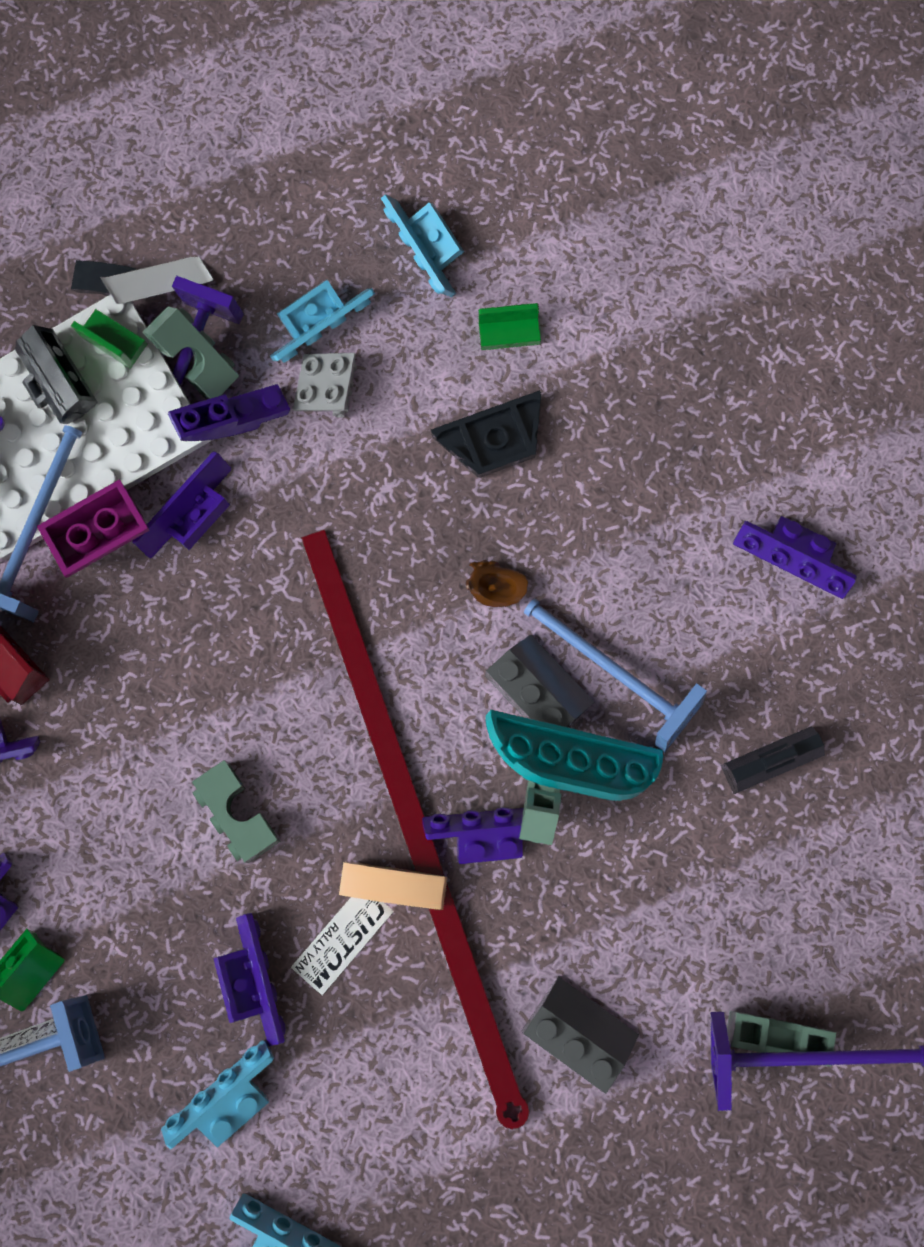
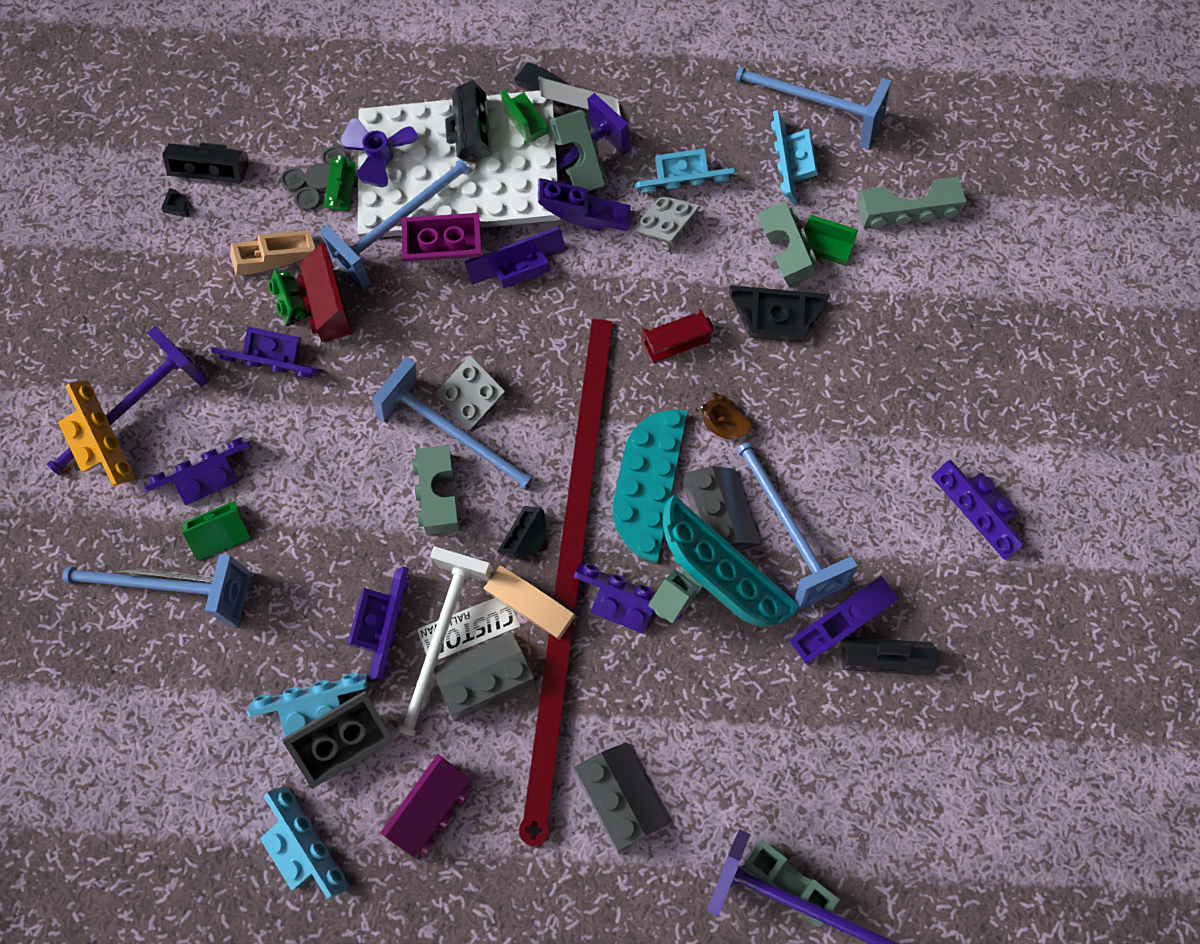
camera: 25 degrees right, 10 degrees down
(139, 727) = (397, 390): none -> medium blue tile
(215, 686) = (471, 392): none -> light grey hinge
(277, 1128) = (338, 739): none -> dark grey slope
(307, 887) = (461, 568): none -> white tile
(351, 813) = (526, 535): none -> black slope
(382, 983) = (483, 676): none -> dark grey slope
(400, 1147) = (428, 808): none -> magenta slope
(402, 515) = (677, 336): none -> dark red window
(448, 692) = (647, 482): none -> teal plate
(489, 151) = (872, 113): none -> medium blue tile
(489, 368) = (779, 225): none -> sand green arch
(549, 259) = (881, 207): none -> sand green arch
(715, 745) = (843, 619): none -> dark purple slope

